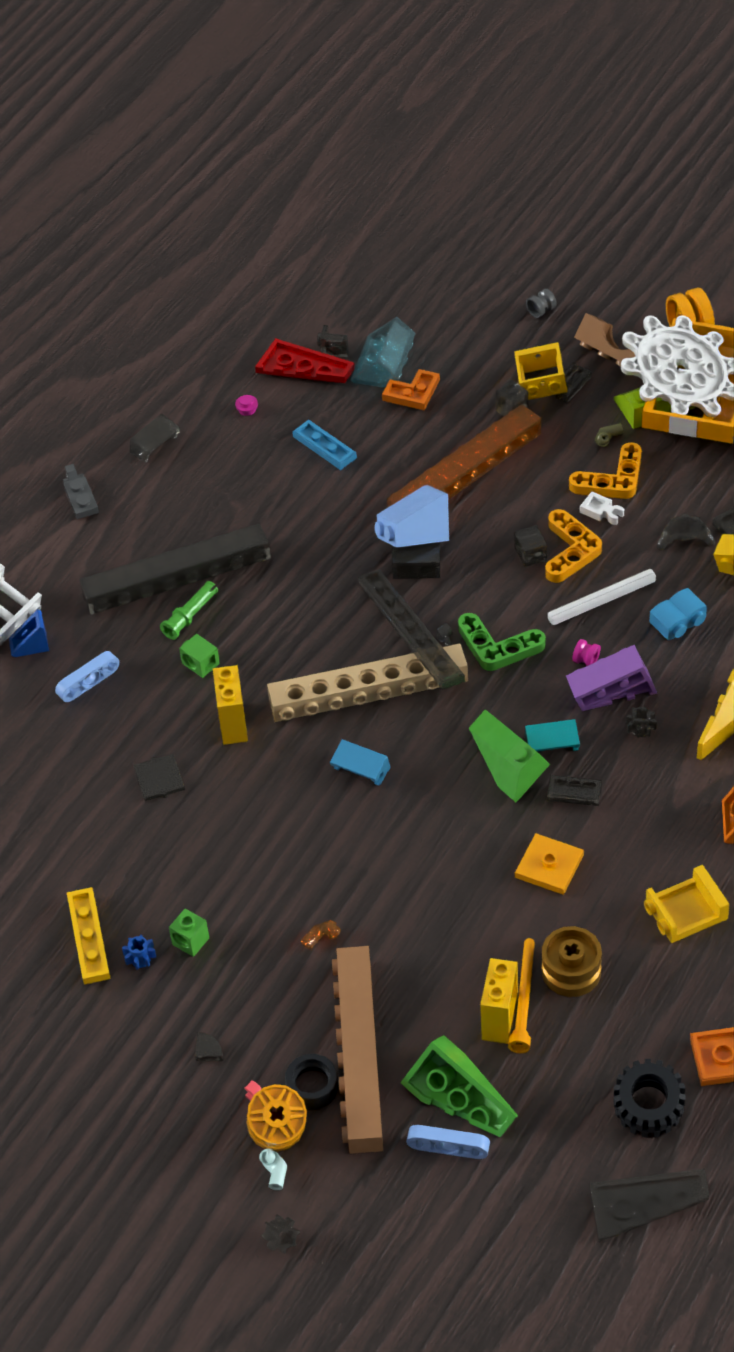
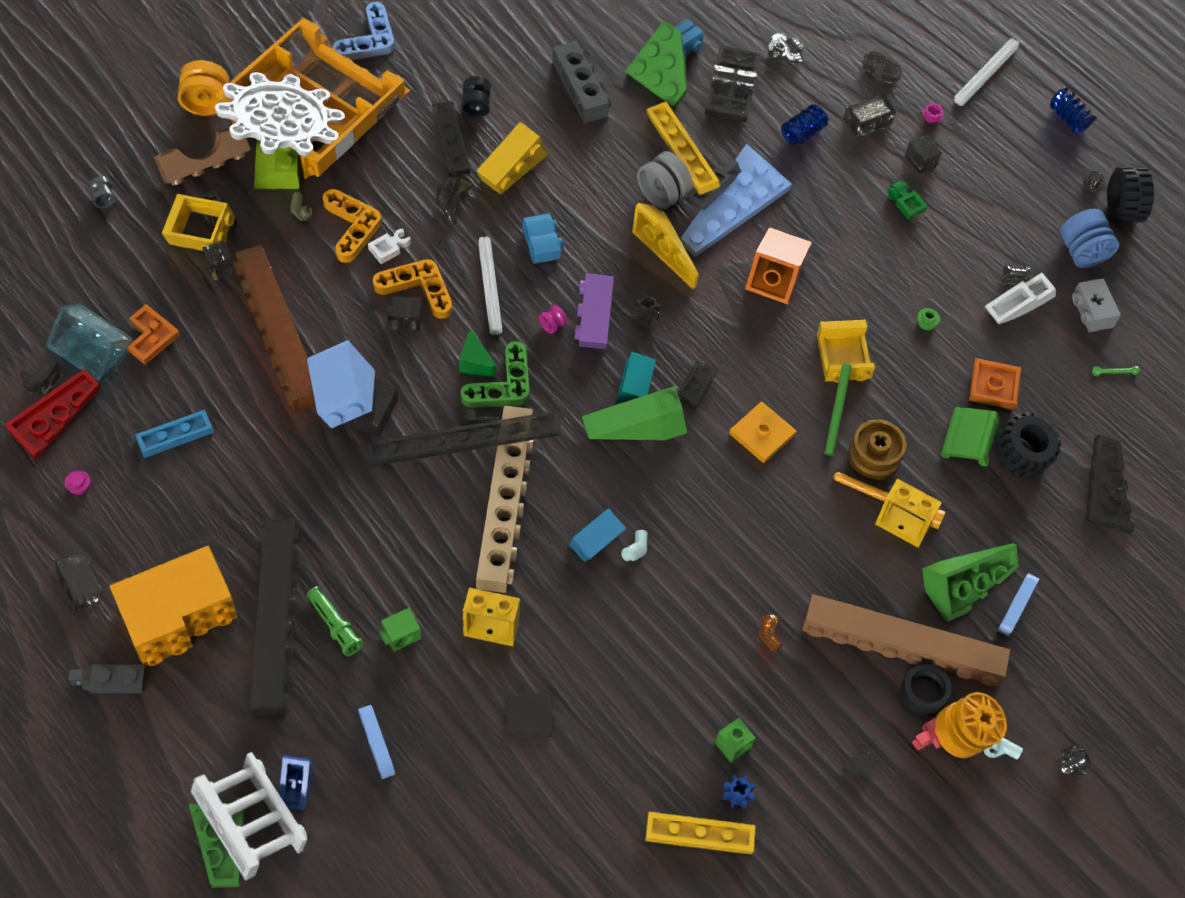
camera: 80 degrees left, 10 degrees up
(152, 497) = (173, 604): none -> light orange piece
(363, 801) = (638, 548): none -> light aqua arm
(511, 609) = (475, 358): none -> green slope
(606, 913) = (837, 410): none -> bright green bar
(640, 1043) = (971, 434): none -> bright green piece

